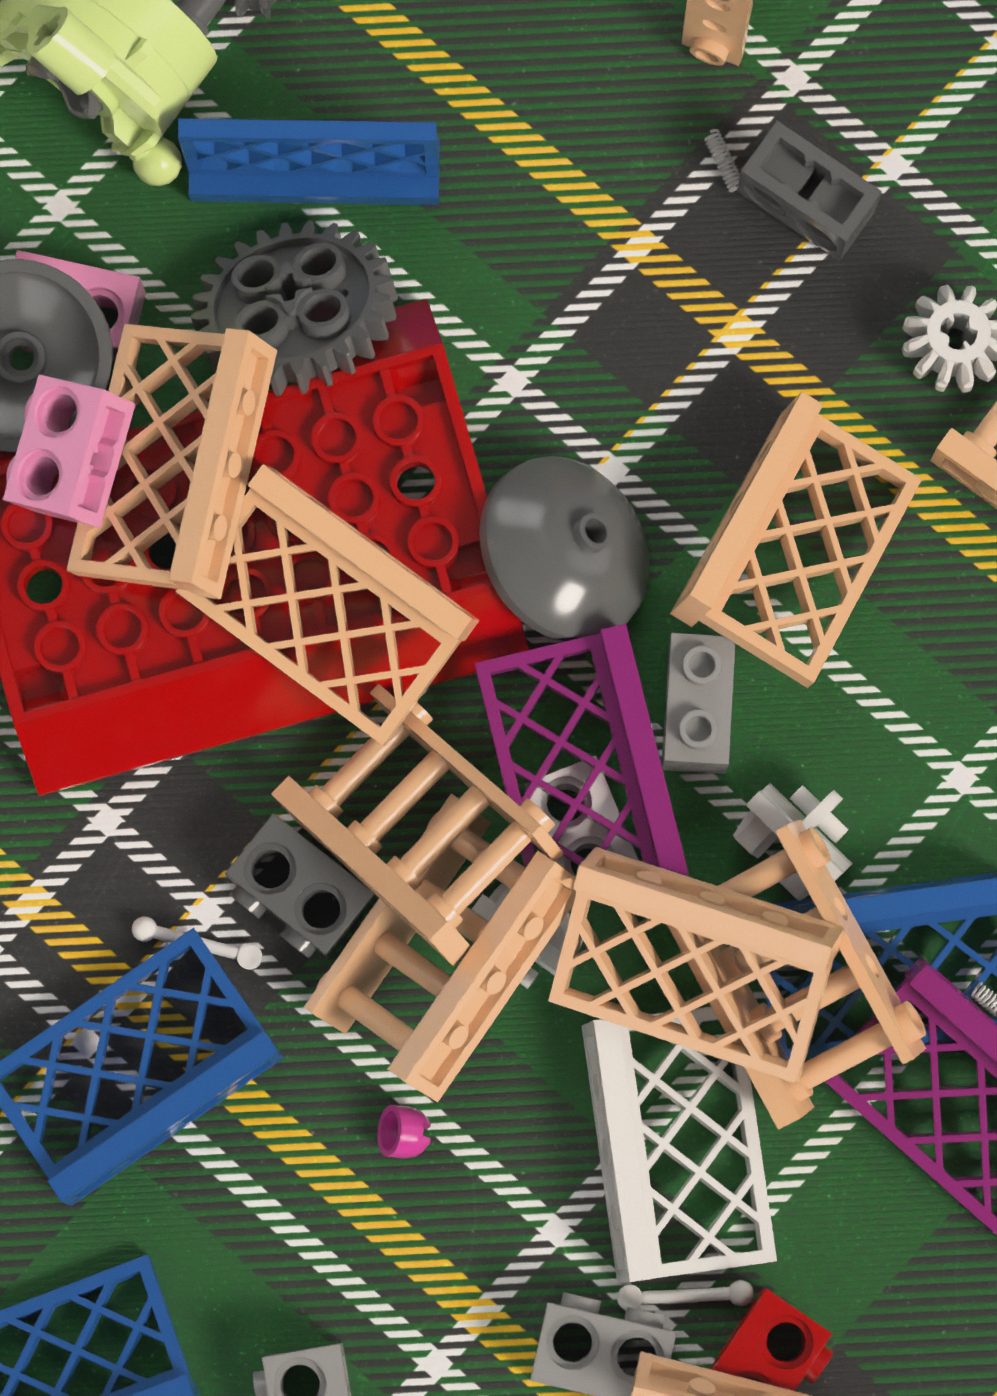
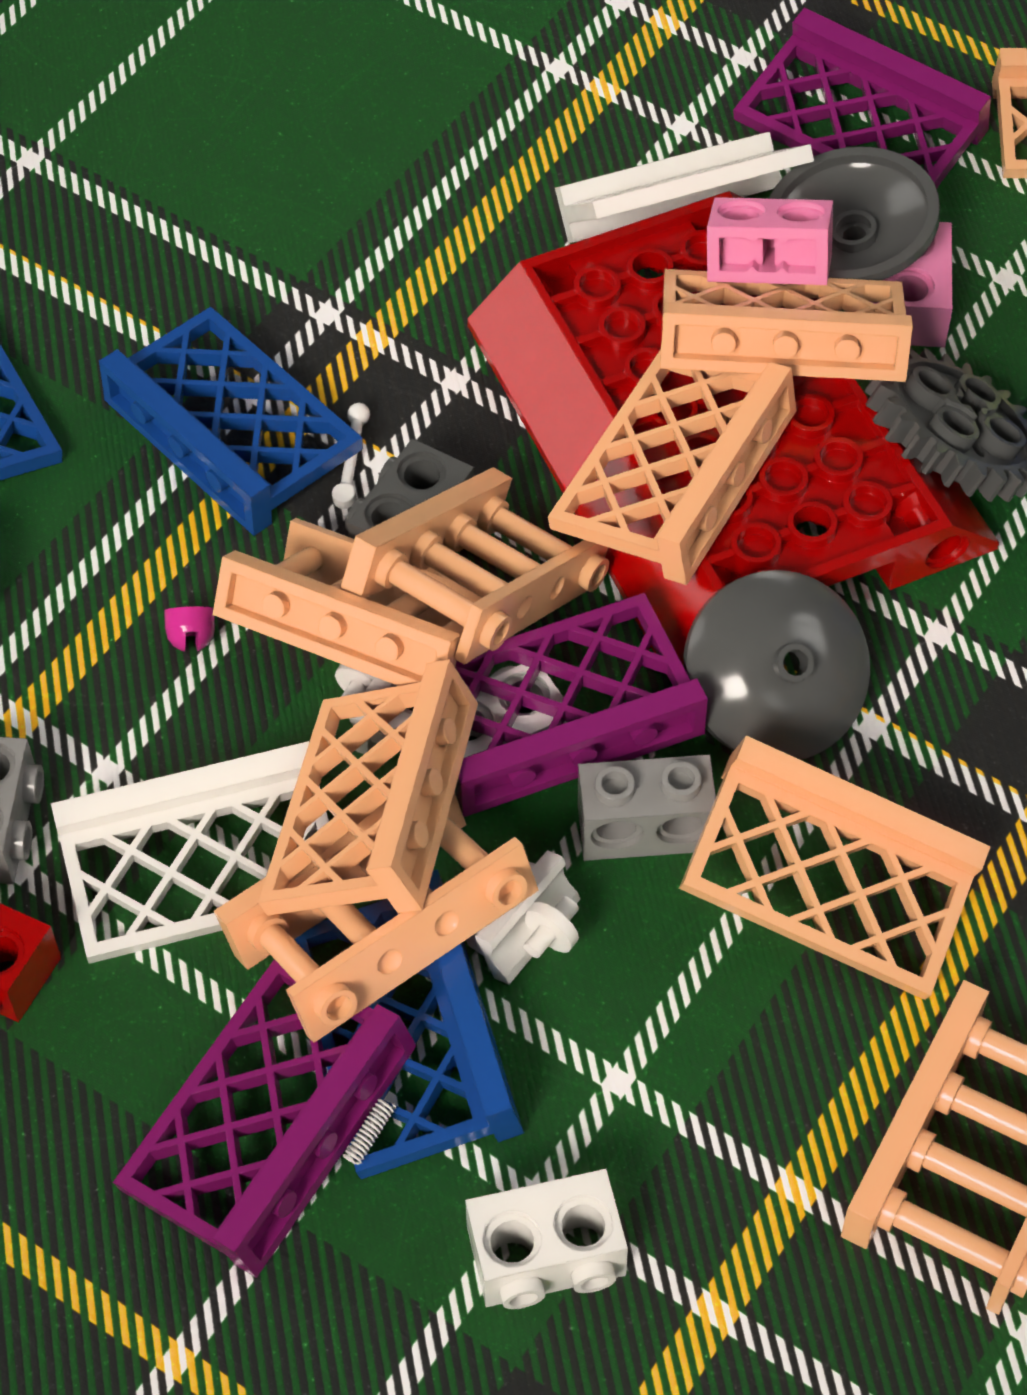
camera: 80 degrees right, 25 degrees down
(738, 1293) = (44, 841): white hinge -> none

